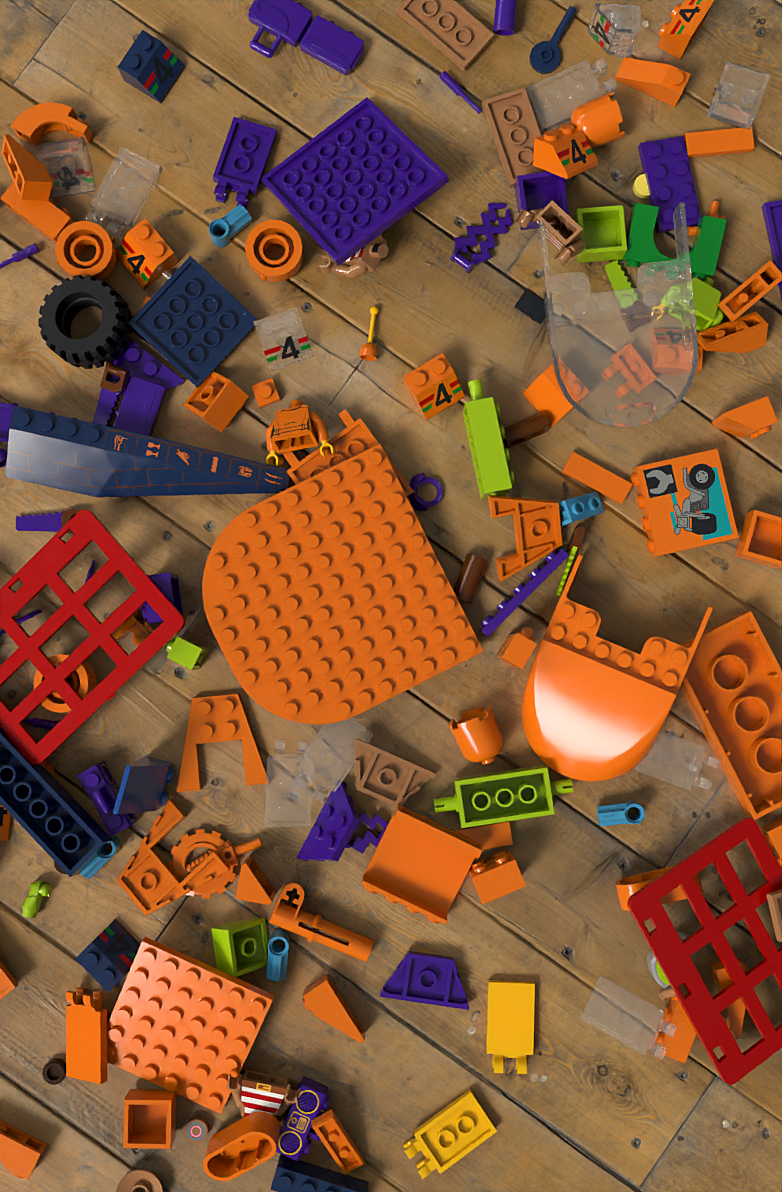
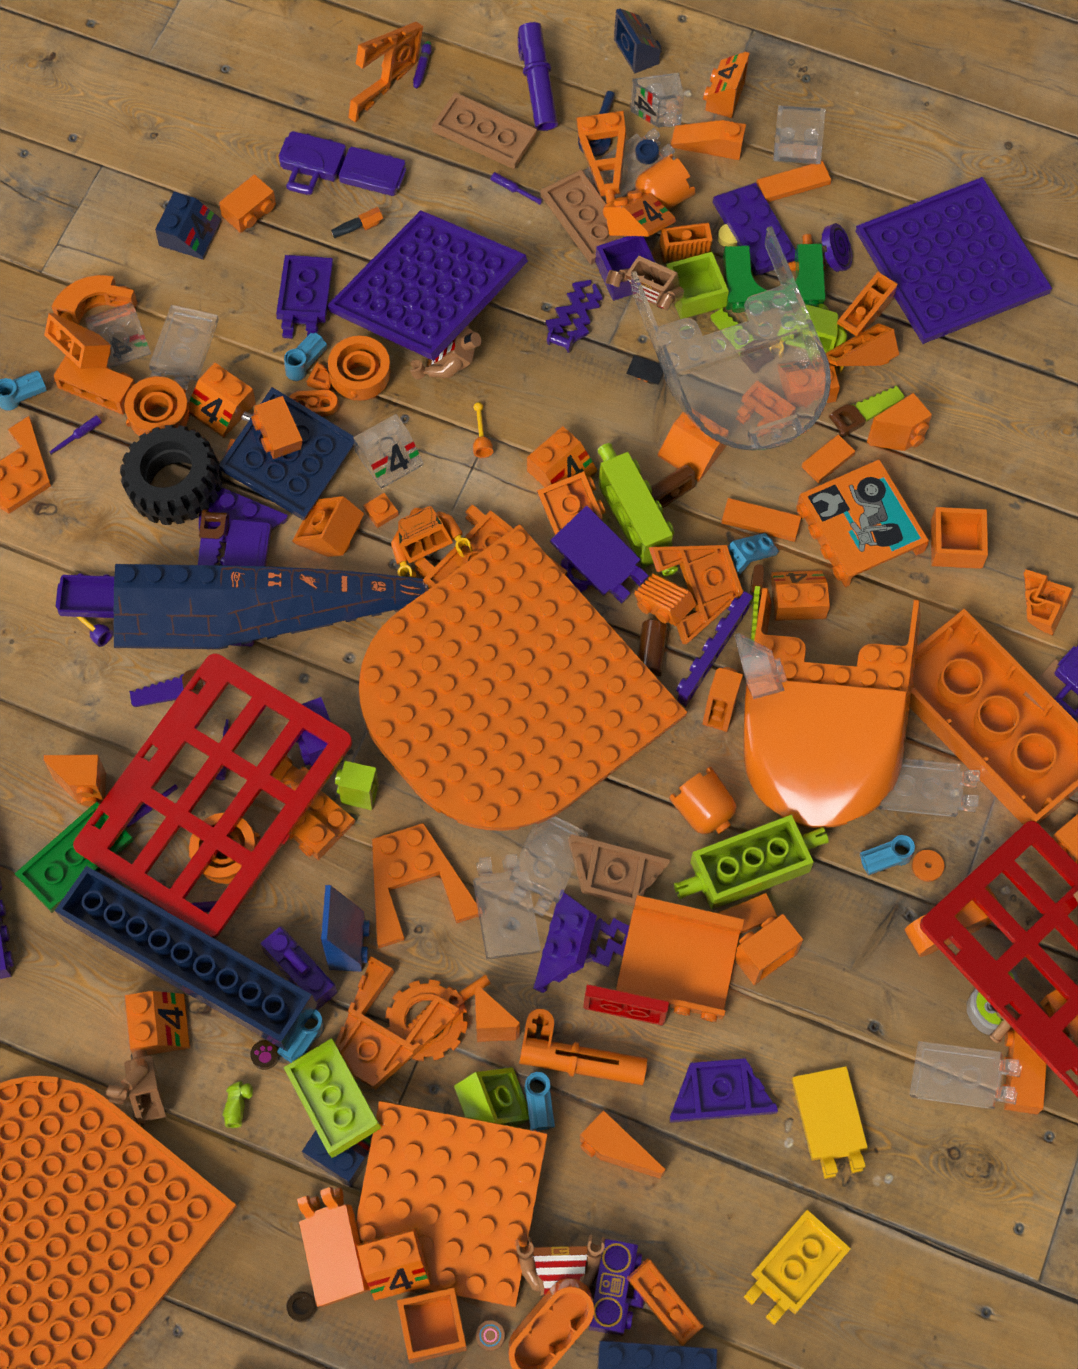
camera: 15 degrees left, 20 degrees down
(107, 923) = (332, 1098): none -> lime plate
(128, 1063) = (394, 1264): none -> orange slope
(153, 678) = (321, 826): none -> orange plate
(185, 298) = (277, 427): none -> orange brick
(210, 55) = (247, 203): none -> orange brick
(229, 273) = (315, 399): none -> orange plate
(237, 250) = (319, 378): none -> orange tile
(315, 96) = (367, 220): none -> piece
(357, 893) = (625, 1005): none -> red tile
(432, 429) = (567, 498): none -> orange plate
(444, 482) = (598, 554): none -> dark purple tile
(491, 540) = (664, 599): none -> orange brick
(551, 45) = (602, 127): none -> orange plate
(553, 642) = (761, 669): none -> clear slope
(590, 82) = (647, 151): none -> dark blue tile
(602, 186) = (685, 241): none -> orange brick
(611, 557) = (800, 595): none -> orange slope
(658, 830) = (924, 873): none -> orange wheel
(672, 432) = (828, 458): none -> orange tile
(718, 392) = (865, 410): none -> piece
(740, 222) = (838, 247): none -> dark purple tile

